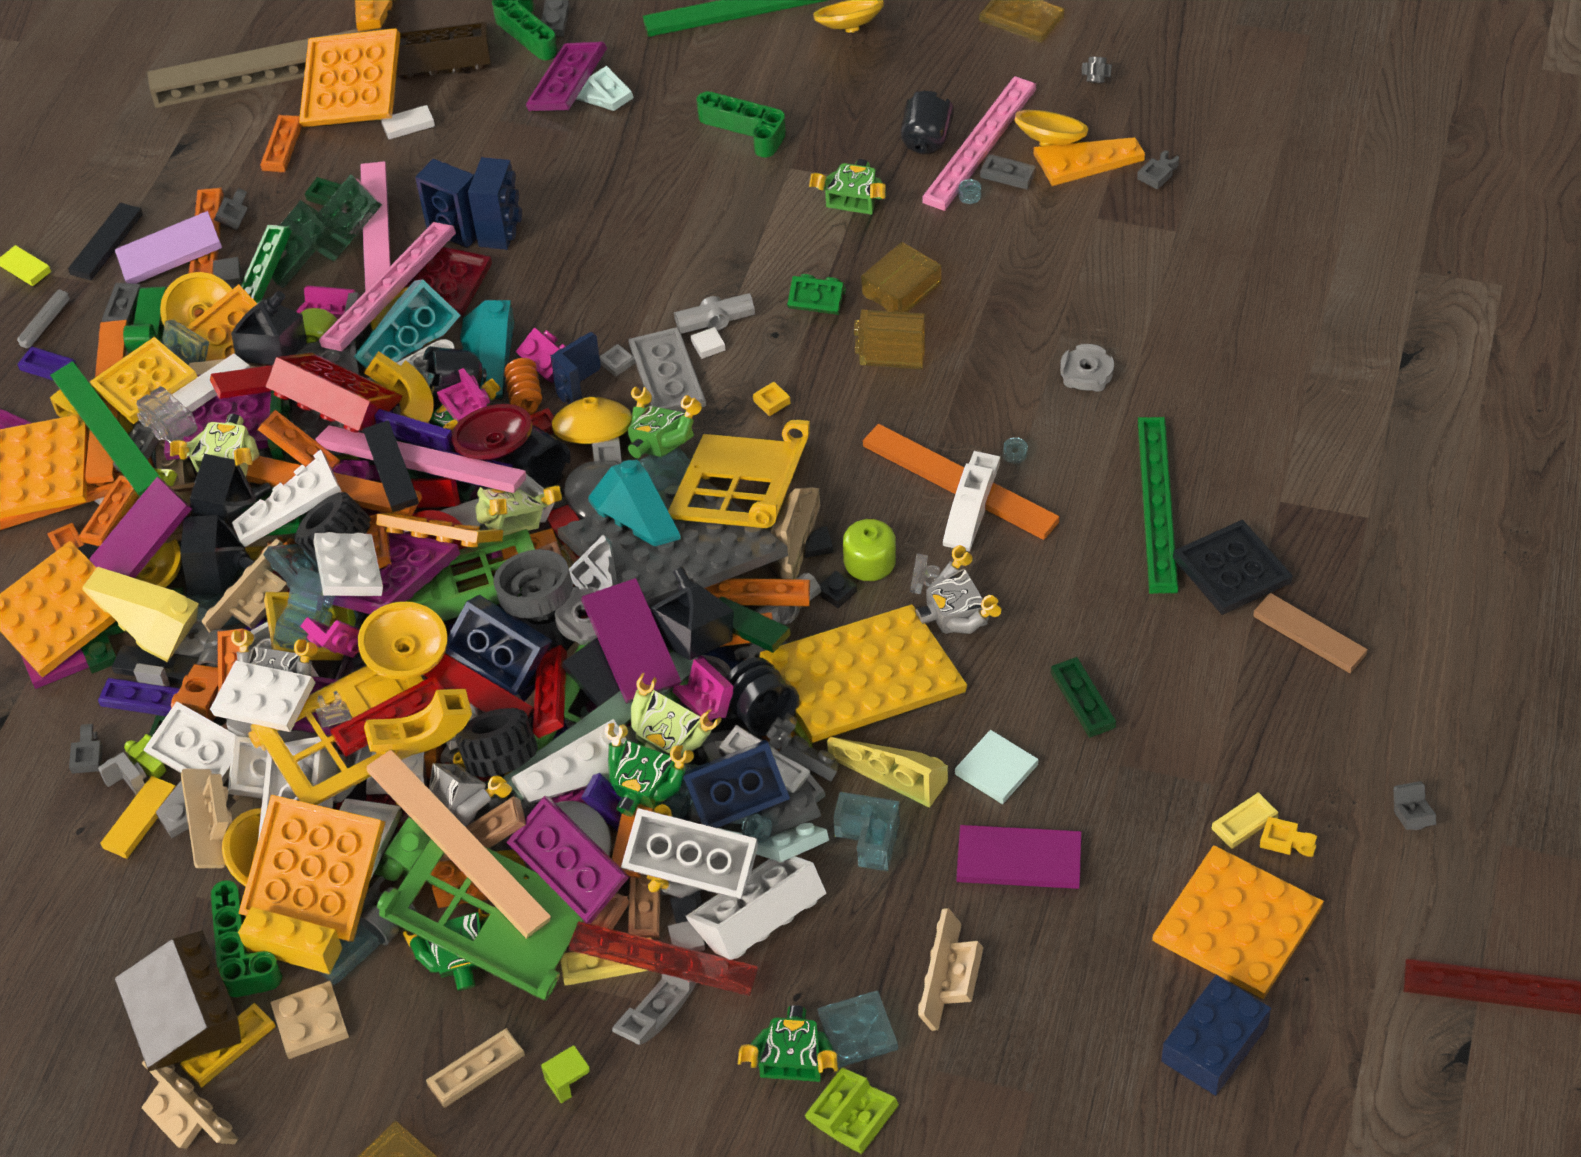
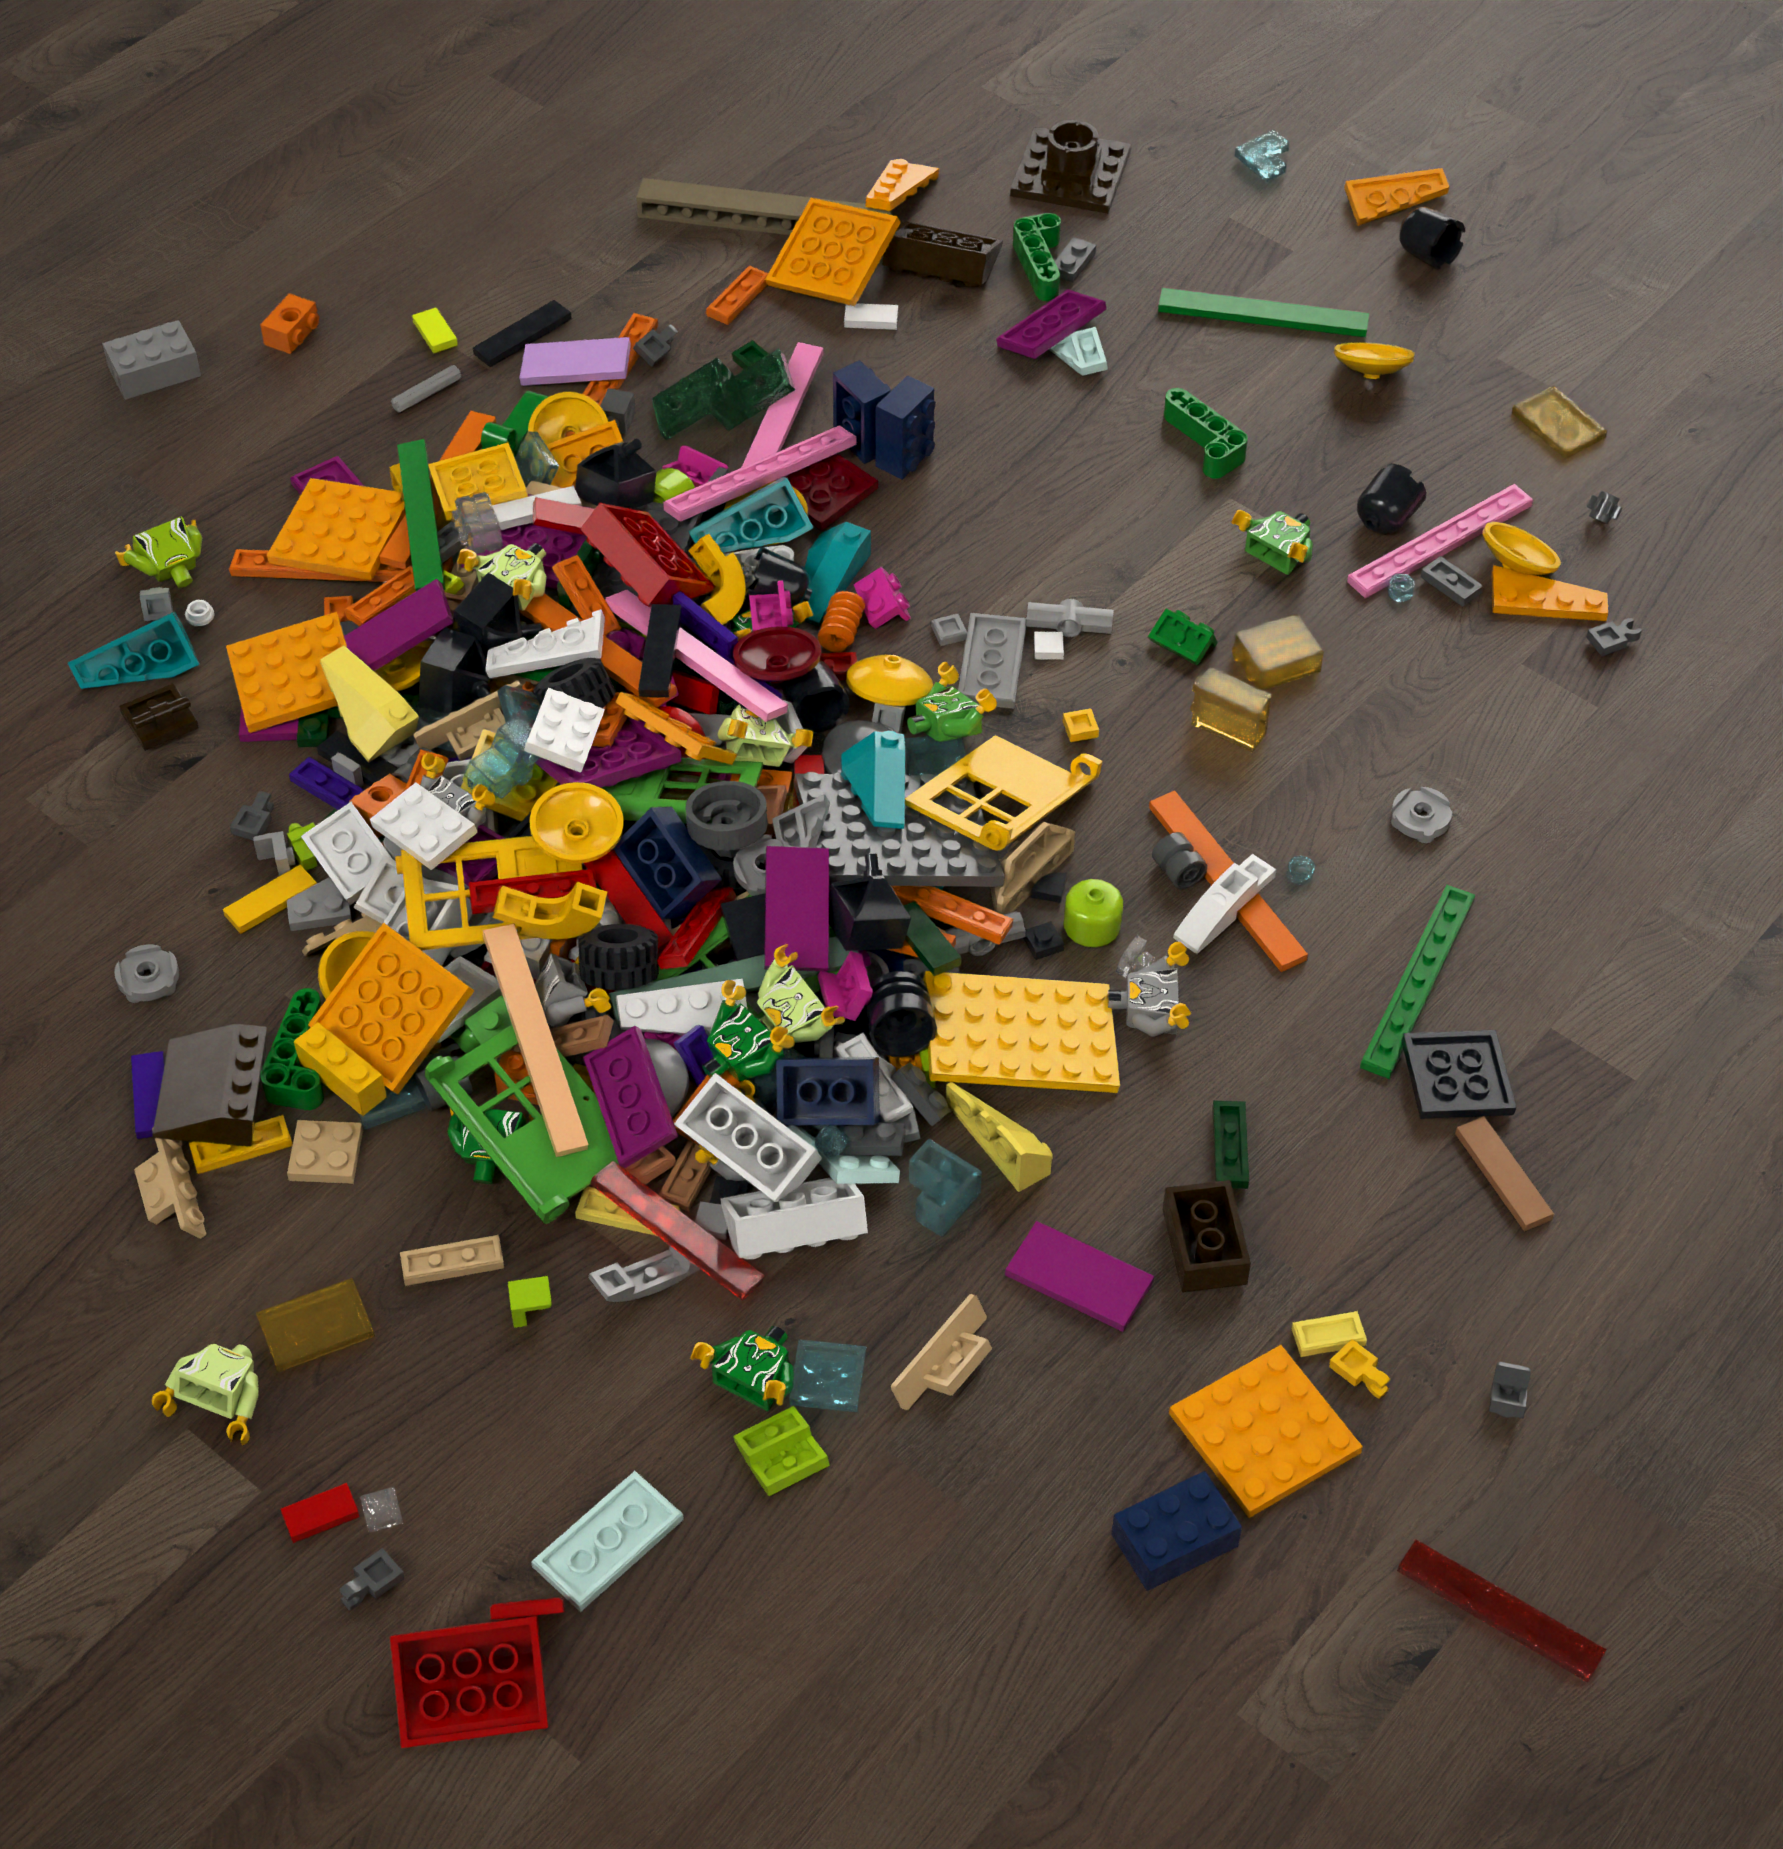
camera: 20 degrees right, 0 degrees up
(42, 362) = (403, 430): dark purple tile -> none
(68, 940) = (150, 987): none -> light grey plate
(117, 1033) = (147, 1081): none -> dark purple tile
(122, 303) = (504, 400): dark grey plate -> none
(206, 815) = (322, 920): tan bracket -> none
(265, 261) = (655, 407): green tile -> none
(333, 713) = (479, 868): clear tile -> none
(336, 638) = (513, 792): dark pink bracket -> none
(573, 365) = (900, 618): dark blue bracket -> none
(781, 730) = (902, 1055): dark grey plate -> none
(911, 478) = (1176, 858): none -> dark grey wheel
(996, 766) = (1105, 1178): light aqua tile -> none
(1108, 780) = (1206, 1236): none -> dark brown brick

